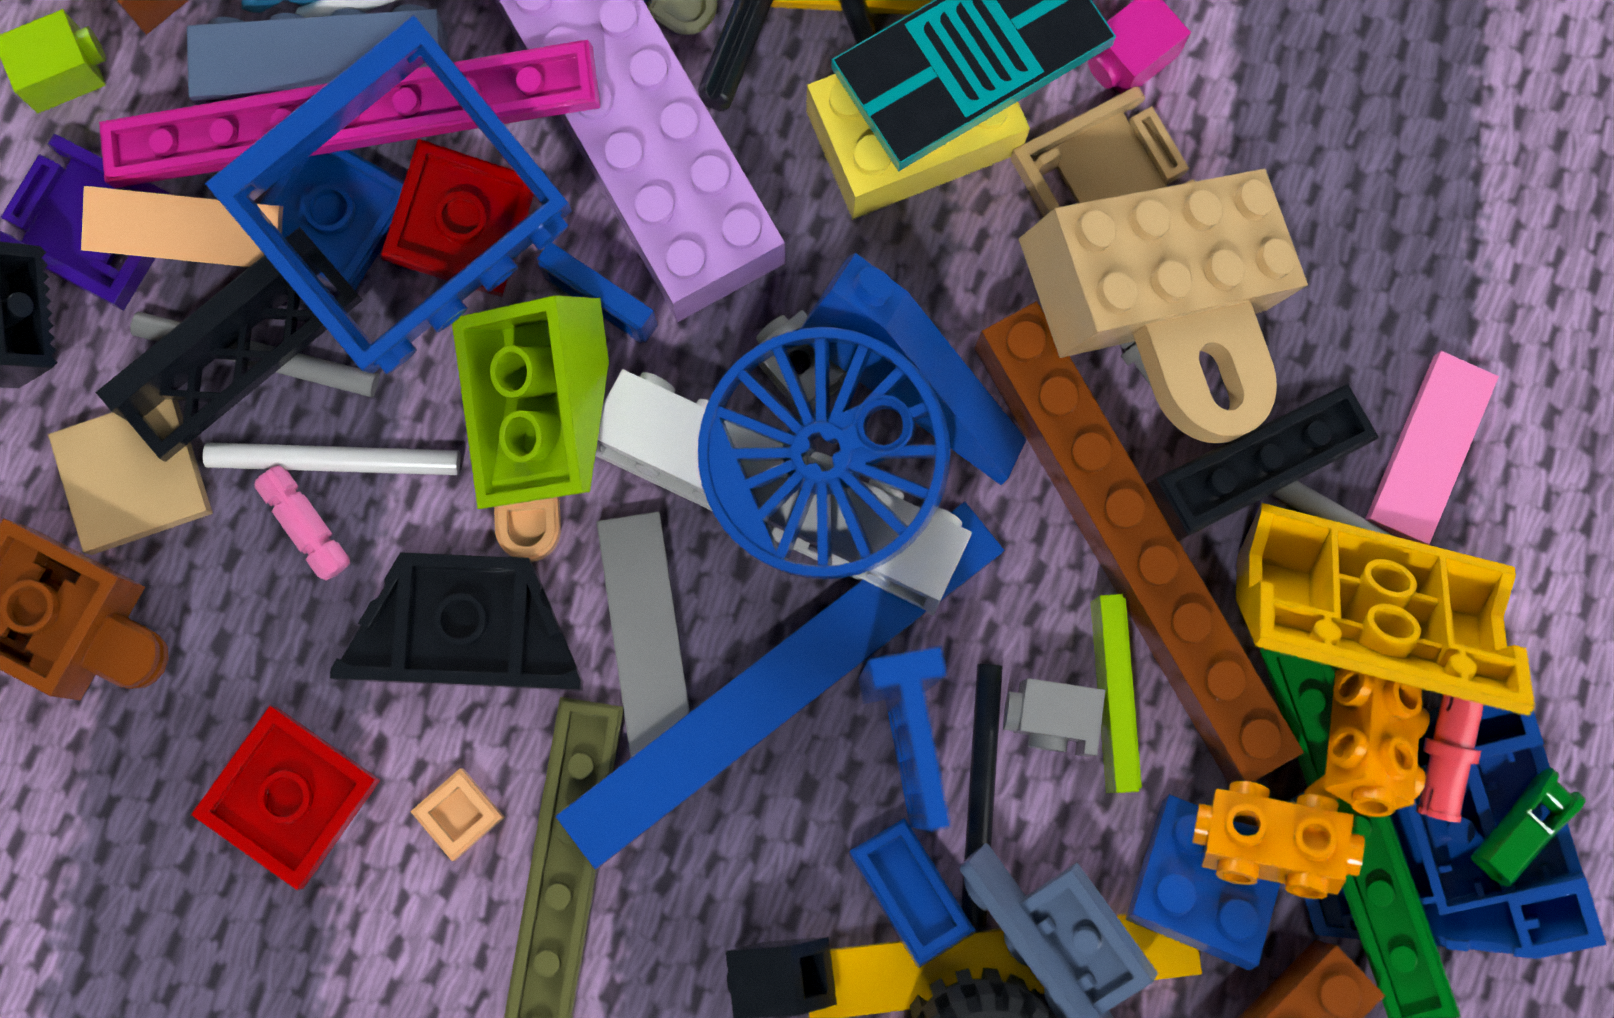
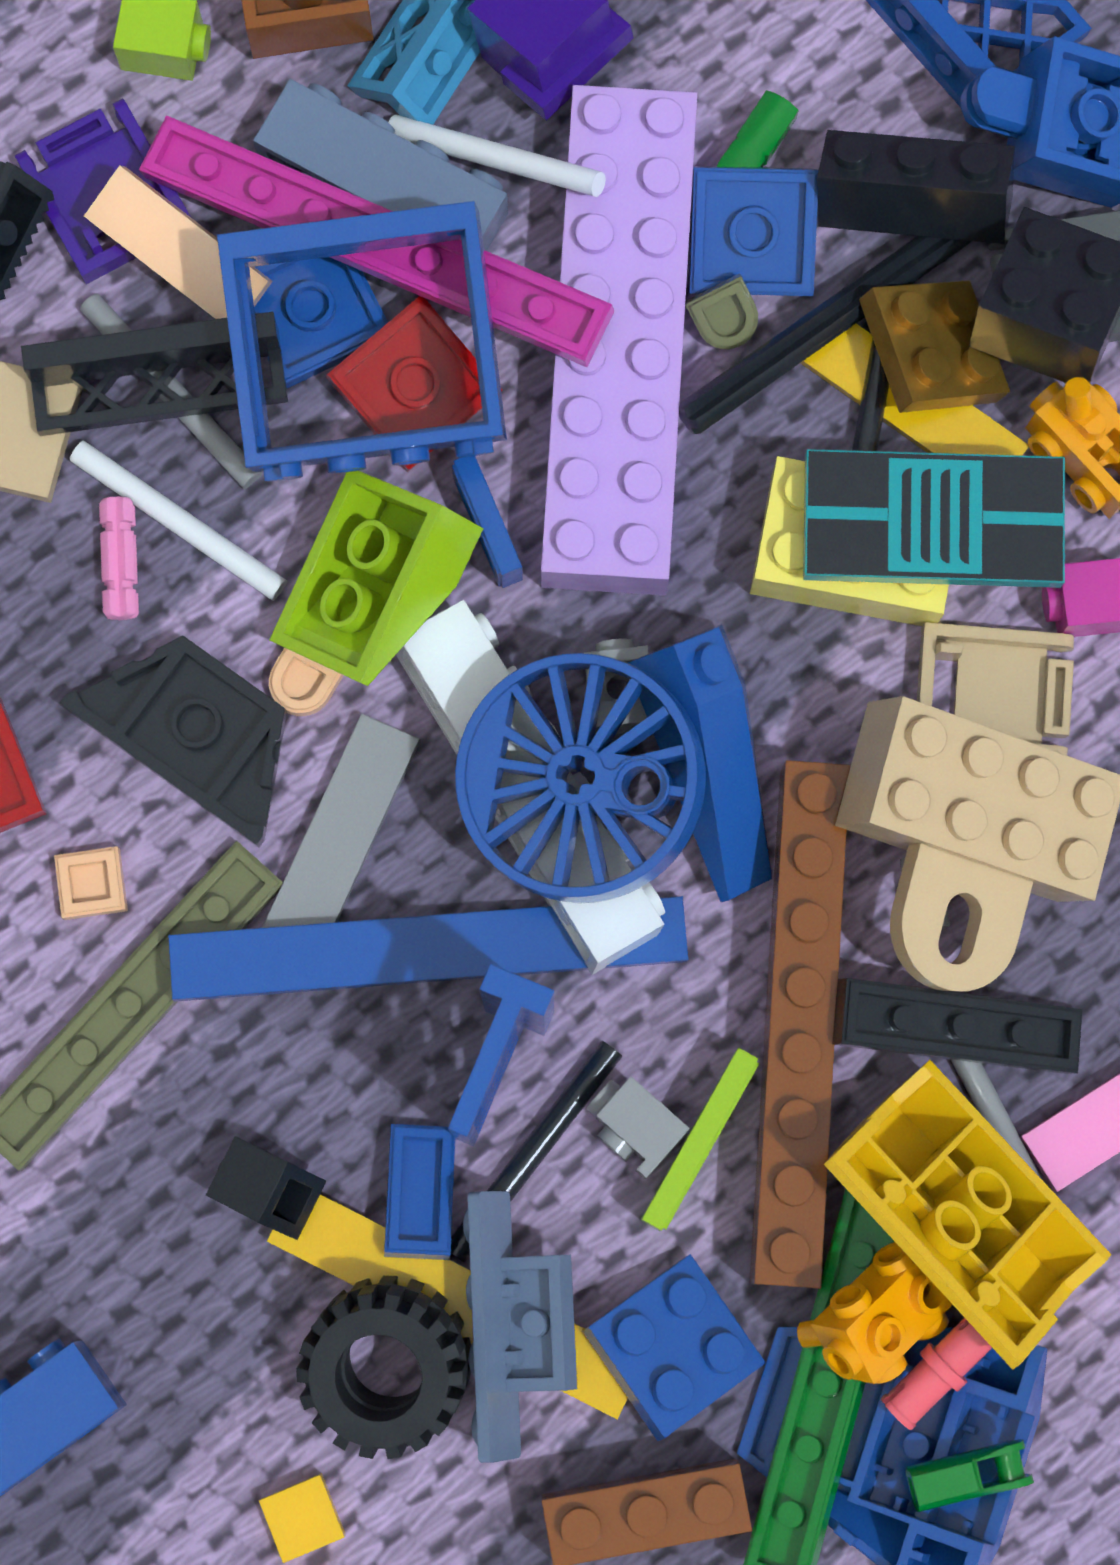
camera: 35 degrees right, 0 degrees up
(1295, 844) = (759, 1357): light orange brick -> none

